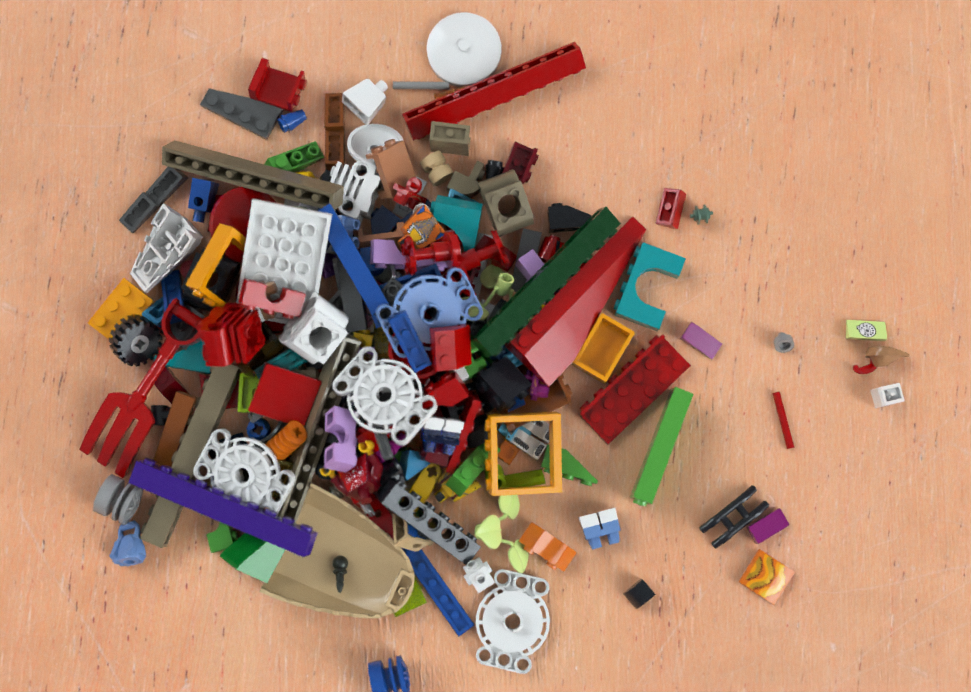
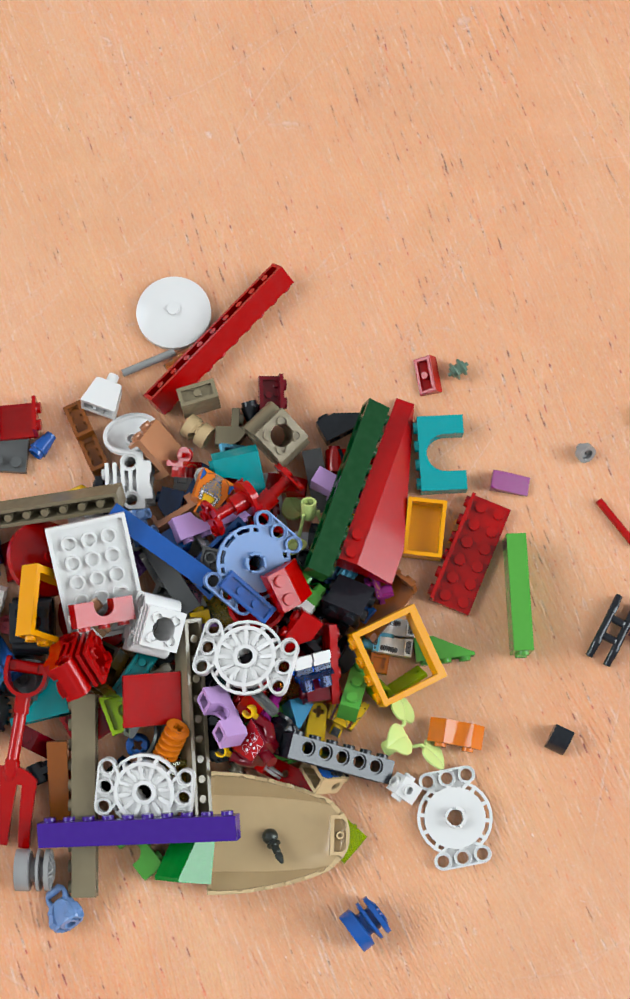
camera: 25 degrees left, 5 degrees down
(297, 158) = (63, 478): bright green slope -> none
(439, 592) = (375, 821): blue tile -> none
(592, 529) = (504, 690): medium blue hips -> none

